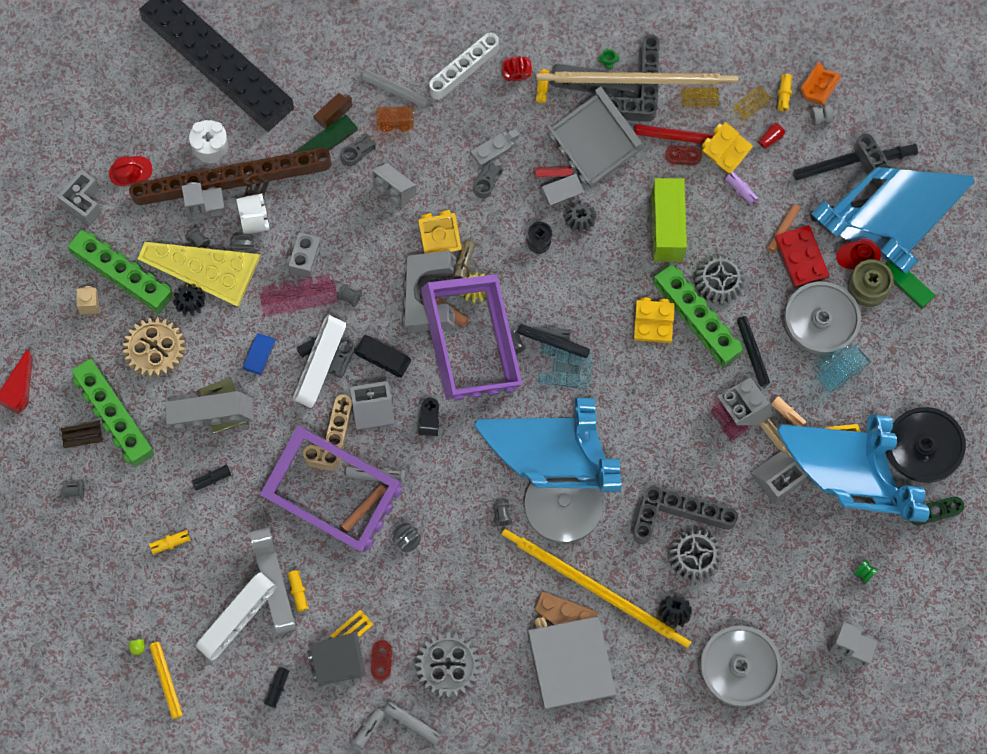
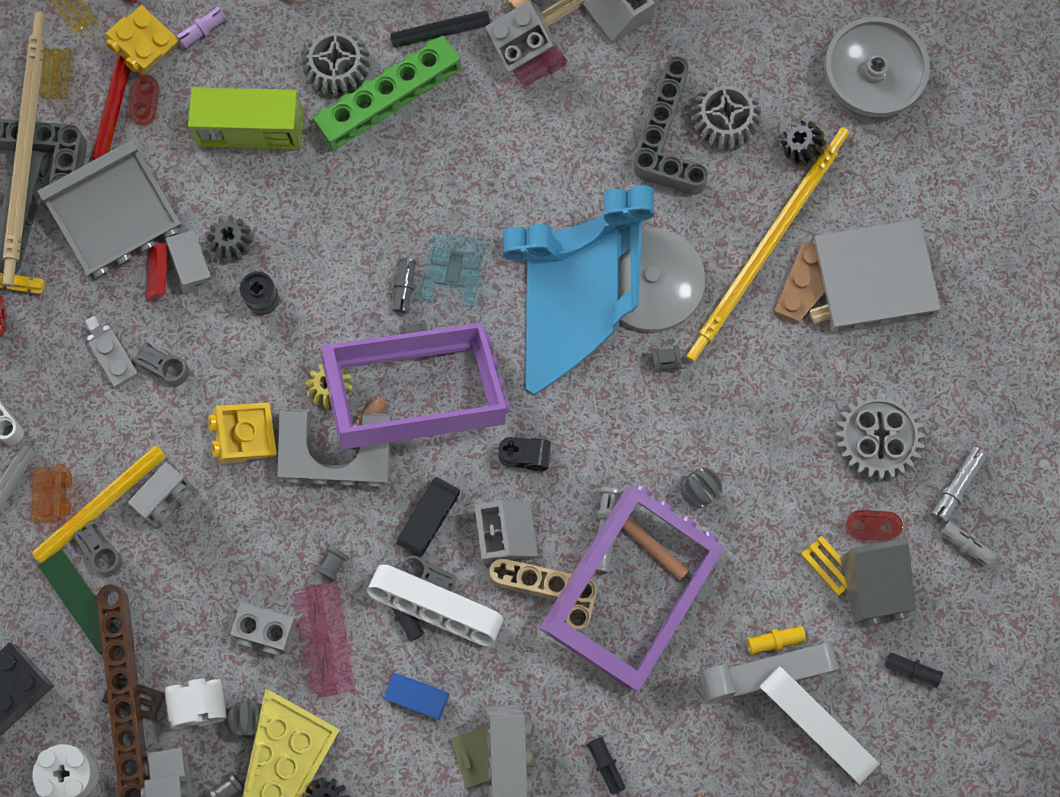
camera: 80 degrees left, 5 degrees up
(333, 110) = (29, 585): reddish brown panel -> none
(389, 149) = (99, 504): none -> yellow axle
(468, 248) = (301, 398): dark tan pin -> none
(553, 341) = (418, 280): black axle -> none
(654, 320) = (390, 150): yellow plate -> none

